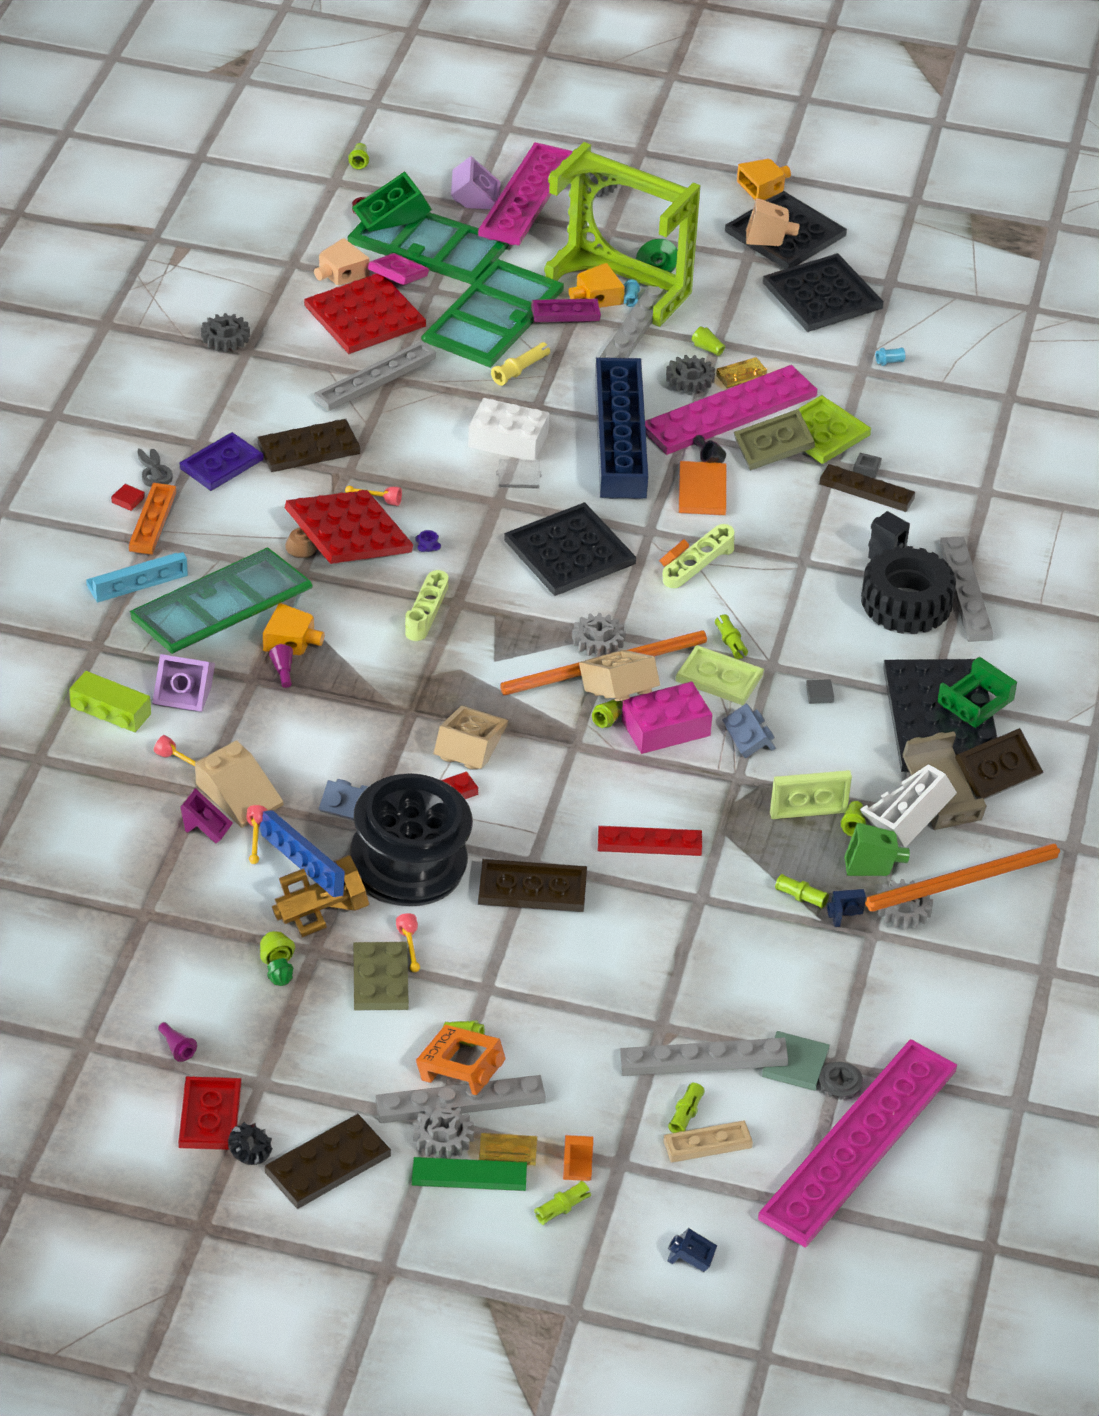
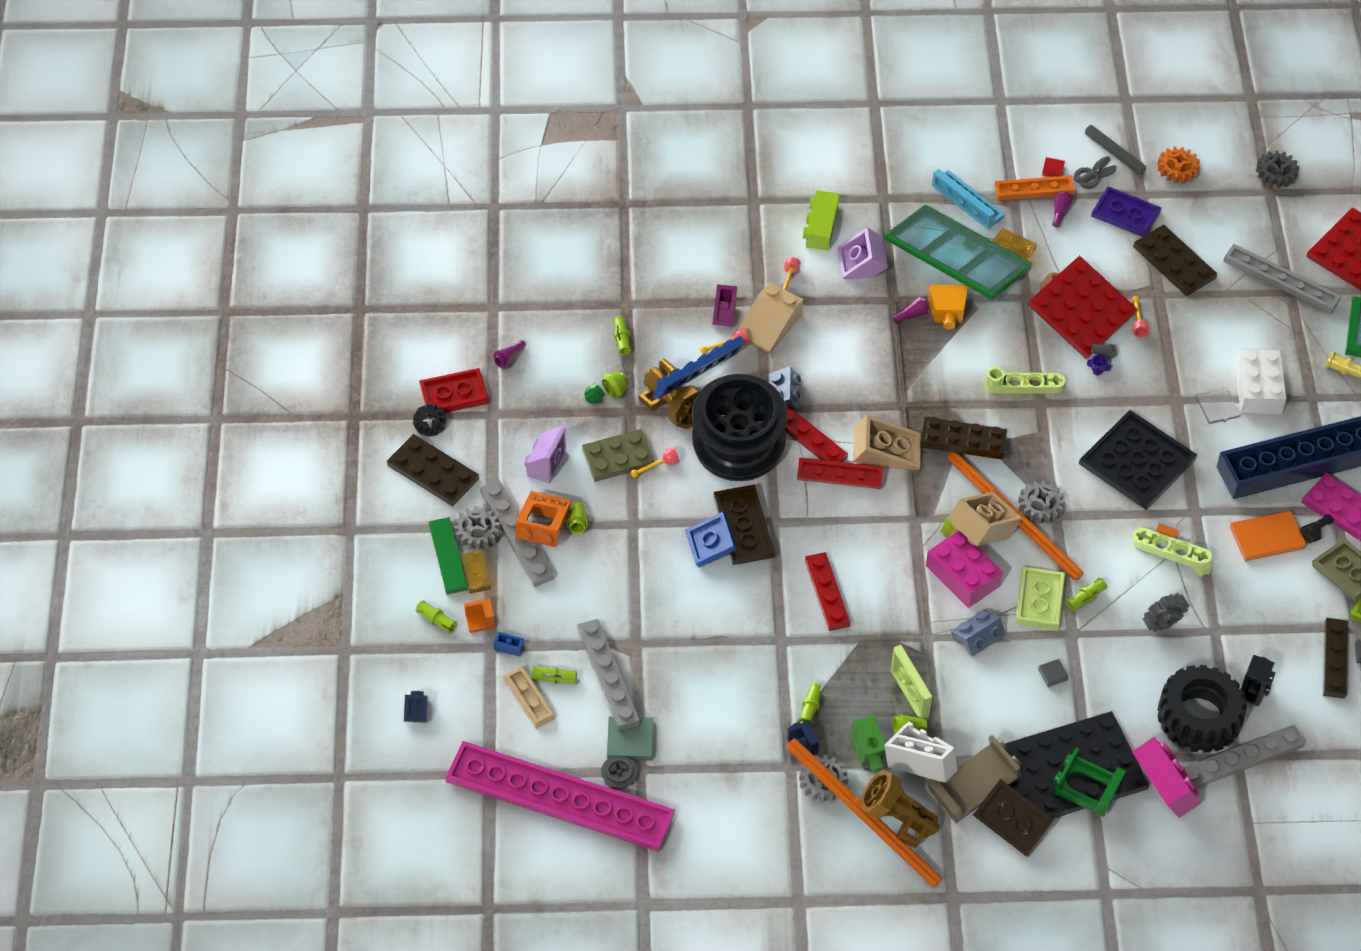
camera: 75 degrees right, 10 degrees up
(128, 442) = (1116, 150): none -> dark grey axle
(180, 400) = (1178, 165): none -> orange gear
(188, 503) = (1062, 202): none -> magenta cone
(212, 929) = (622, 335): none -> lime pin
(223, 557) = (1015, 243): none -> clear yellow plate
(363, 1032) = (547, 455): none -> lavender slope
(414, 528) = (1108, 351): none -> dark grey arm
(486, 671) = (963, 438): none -> dark brown plate
(495, 782) = (839, 473): none -> red plate
(548, 915) = (710, 539): none -> plate
(626, 1141) = (509, 644): none -> blue piece
(785, 578) = (1166, 612): none -> dark grey gear
(971, 839) = (887, 798): none -> pearl gold piece
(988, 633) = (1168, 776): none -> dark pink brick

